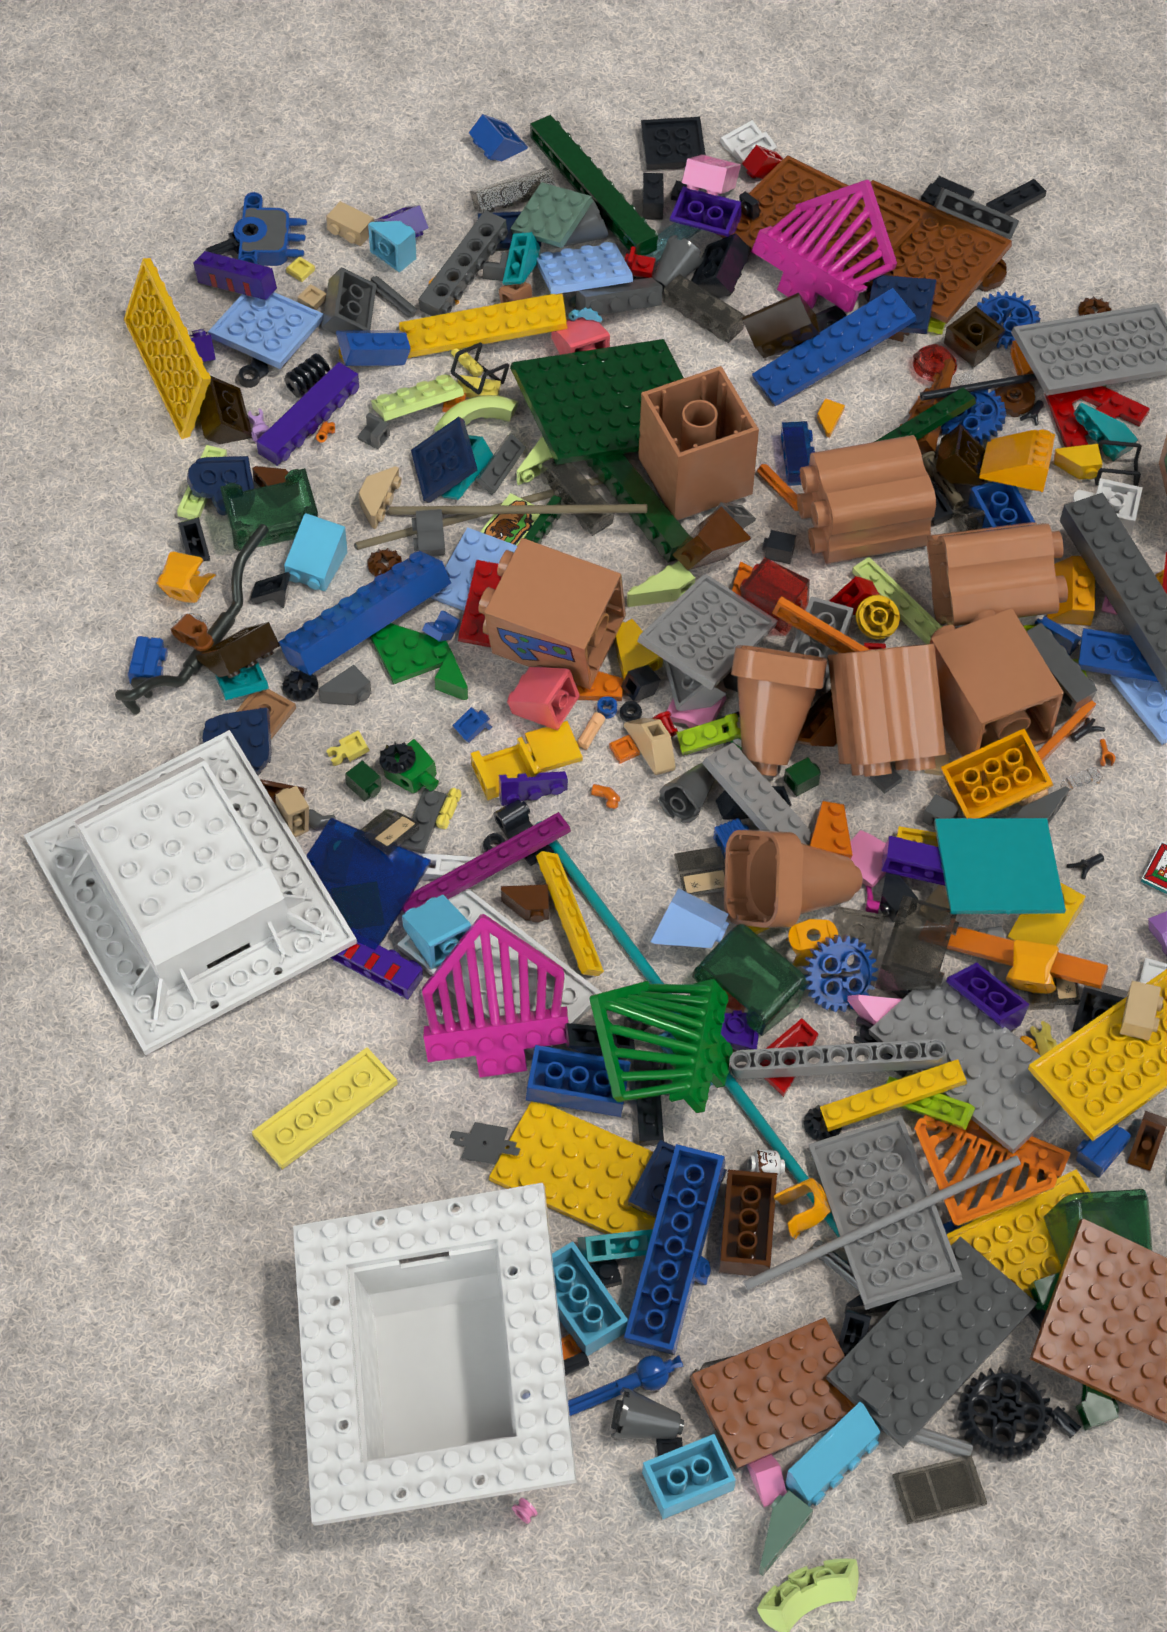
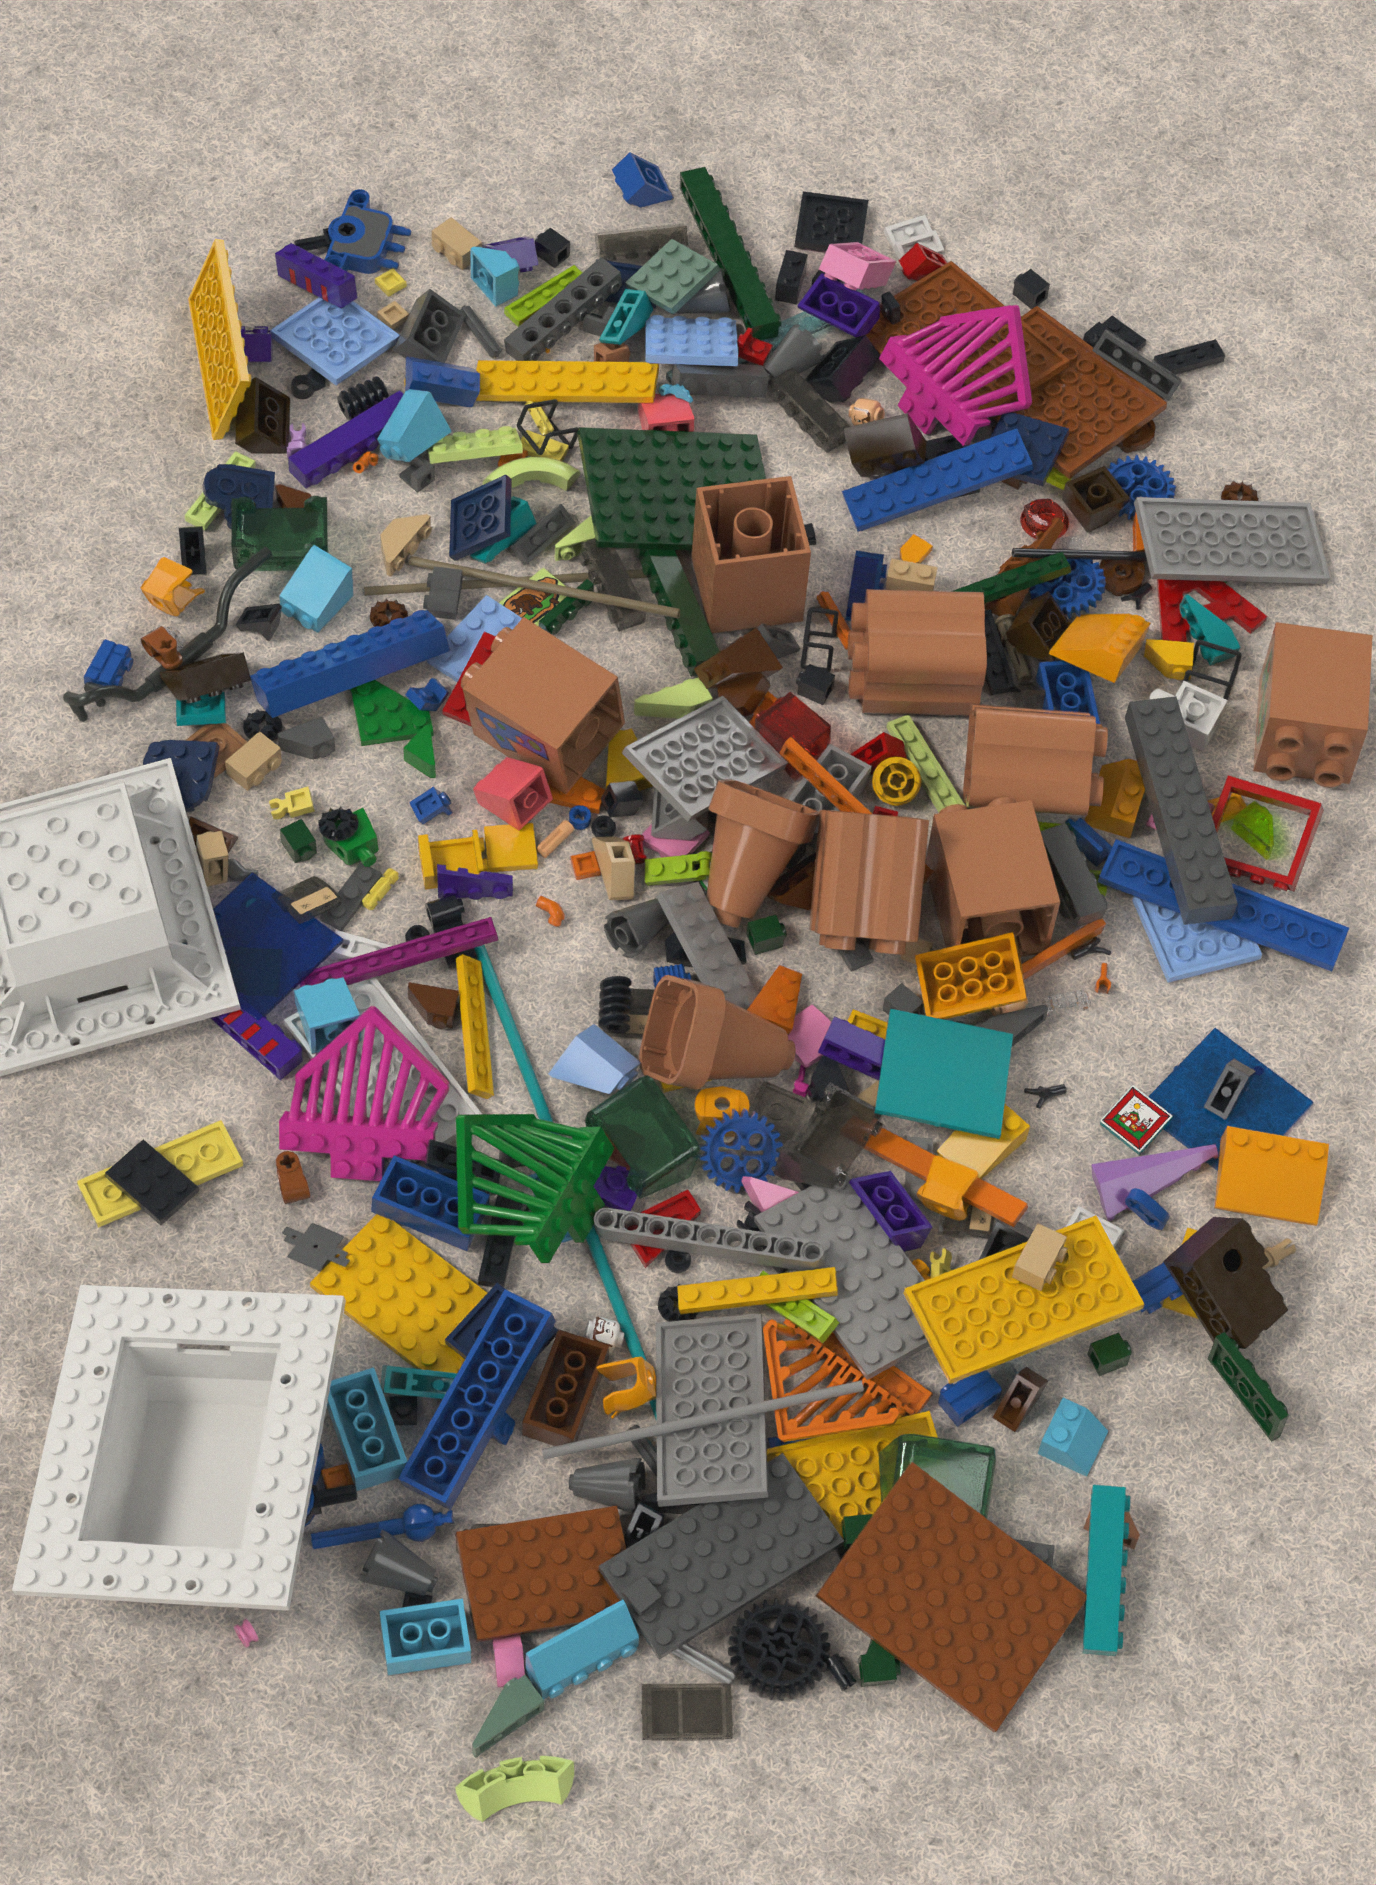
camera: 10 degrees right, 0 degrees up
(302, 718) = (253, 761): none -> tan brick
(321, 1117) = (152, 1182): none -> black plate
(361, 391) = (413, 427): none -> medium azure slope
(434, 260) = (530, 303): none -> lime plate
(436, 210) = (552, 247): none -> black brick
(447, 1089) = (291, 1180): none -> dark orange piece
(690, 867) = (614, 1004): none -> black piece
(723, 566) = (745, 693): none -> reddish brown slope
(753, 300) = (866, 411): none -> light nougat head
(763, 503) = (808, 632): none -> black piece
(811, 1089) = (677, 1267): none -> black plate
(813, 1298) = (611, 1483): none -> dark grey cone
(835, 435) = (910, 576): none -> tan brick
(862, 165) = (1031, 288): none -> black brick

